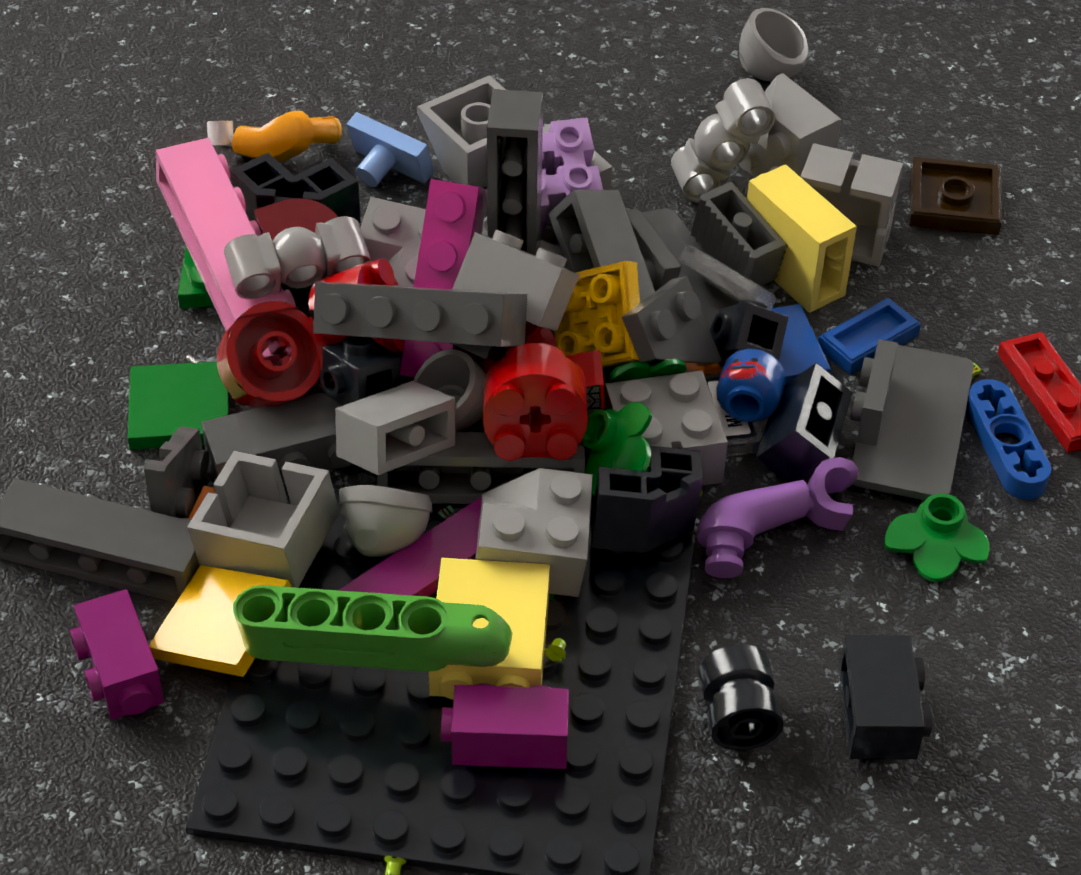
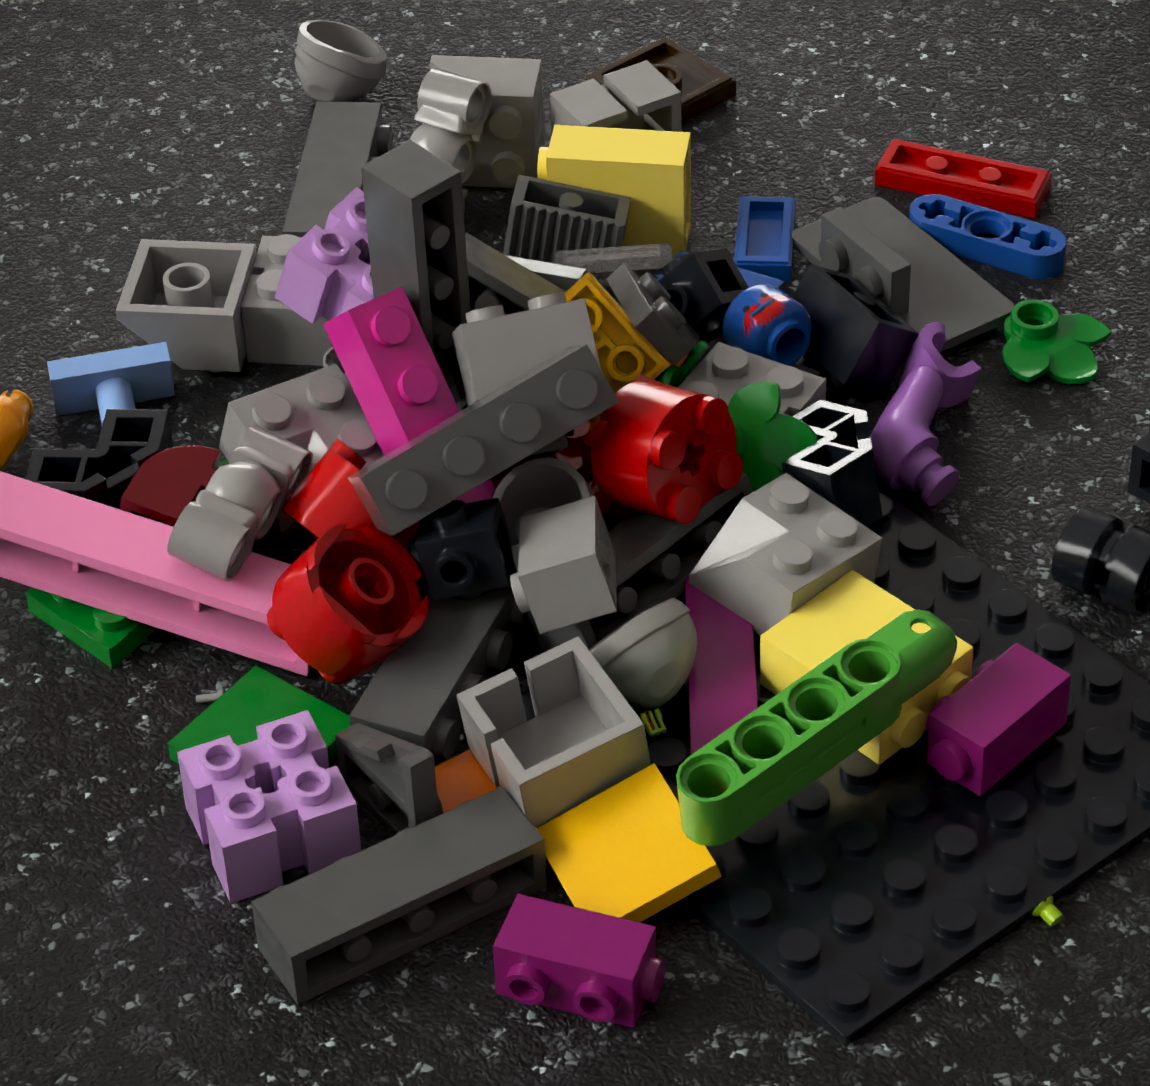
camera: 45 degrees left, 5 degrees down
(107, 437) = (269, 805): none -> lavender brick
(352, 562) = (653, 722): none -> lime piece
(658, 122) = (336, 147): none -> dark grey brick

